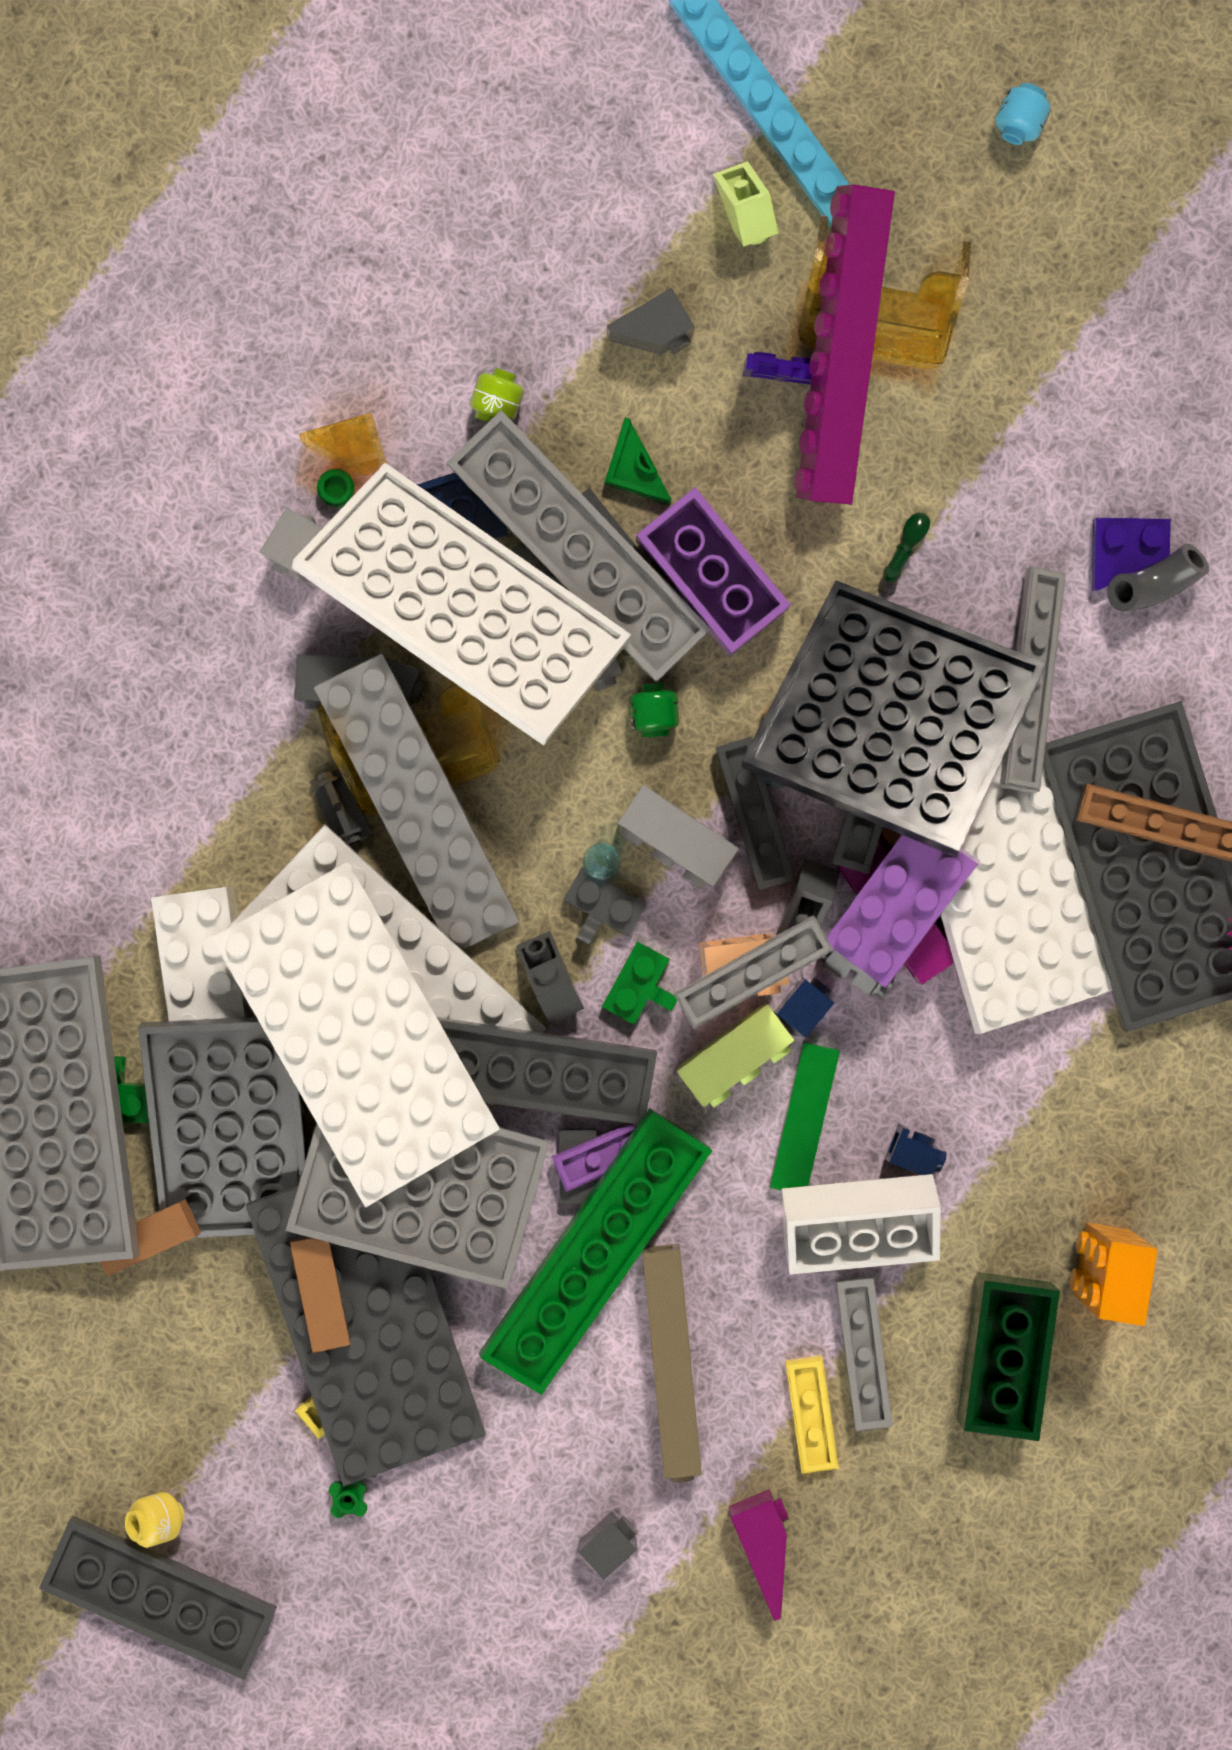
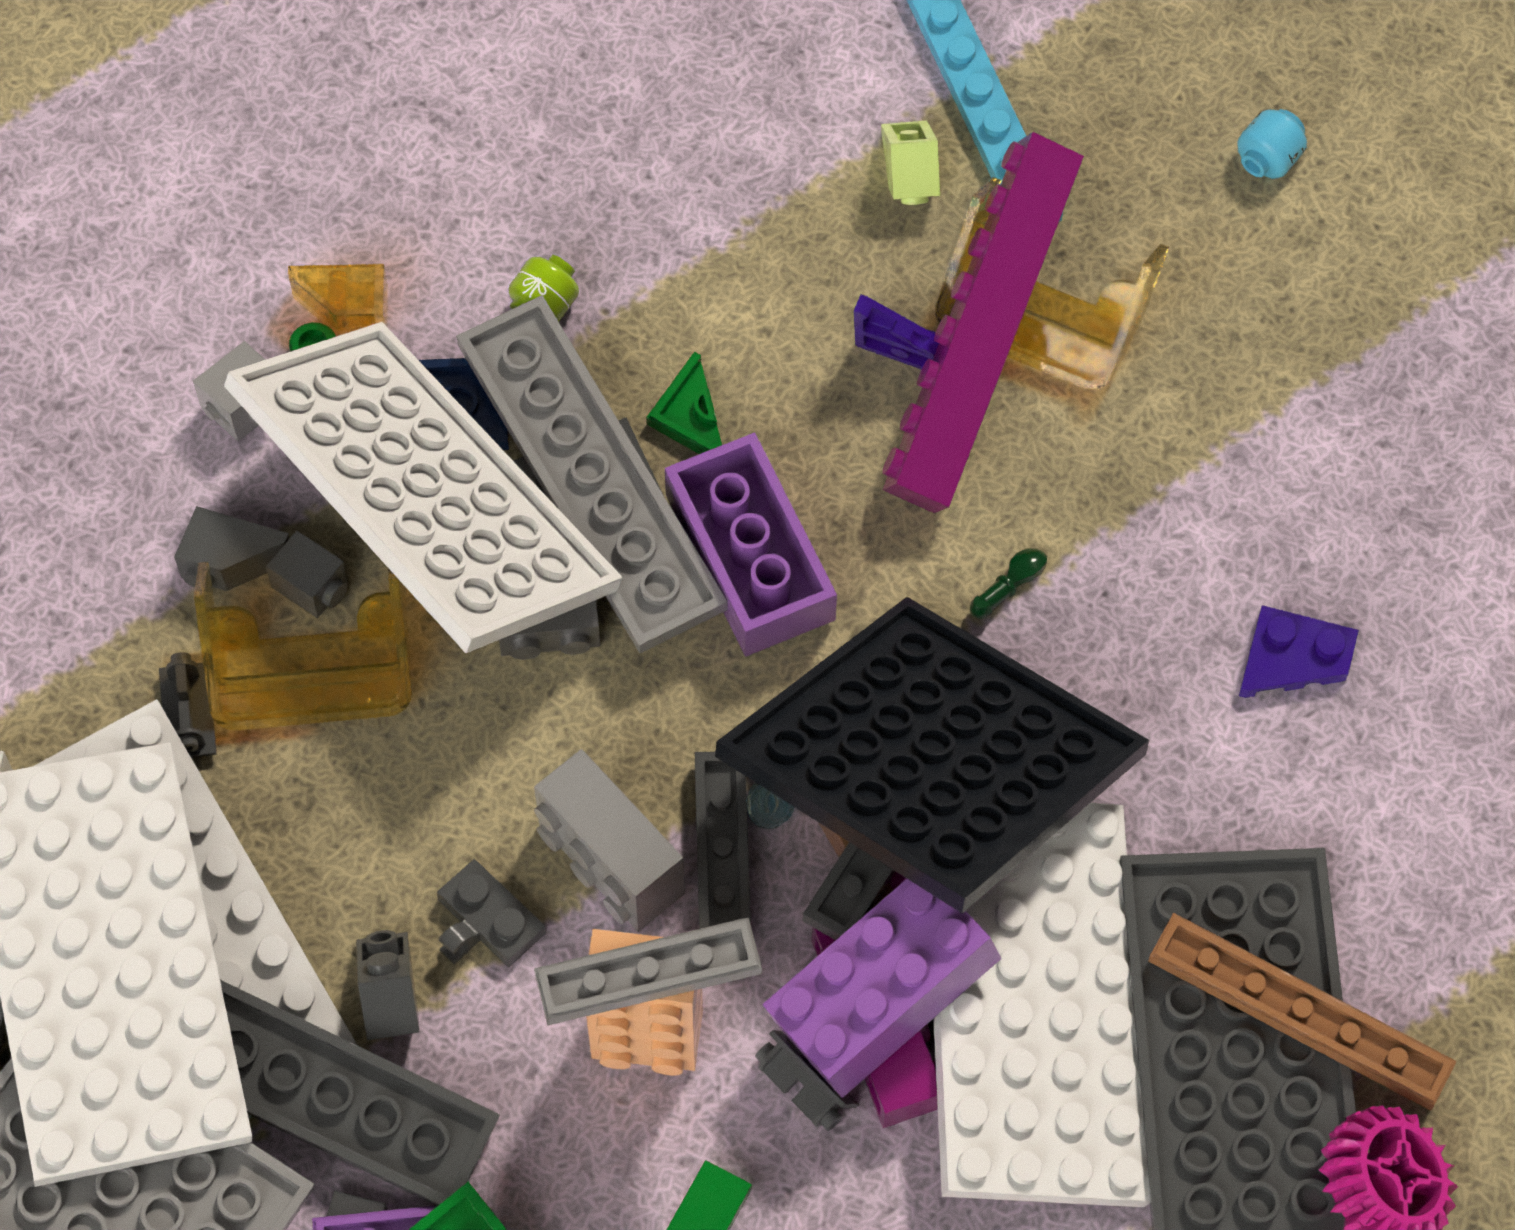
camera: 10 degrees right, 25 degrees down
(416, 802) = (286, 718): light grey plate -> none
(605, 853) = (503, 857): clear light blue plate -> none
(638, 984) = (502, 1029): green plate -> none
(654, 326) = (758, 259): dark grey slope -> none
(654, 710) = (628, 691): green head -> none
(735, 1056) = (605, 1150): yellowish green brick -> none
(805, 1005) = (719, 1109): dark blue brick -> none
(810, 894) = (739, 1002): dark grey slope -> none
(1037, 639) = (1117, 811): light grey tile -> none
(1158, 581) = (1325, 699): dark grey cylinder -> none

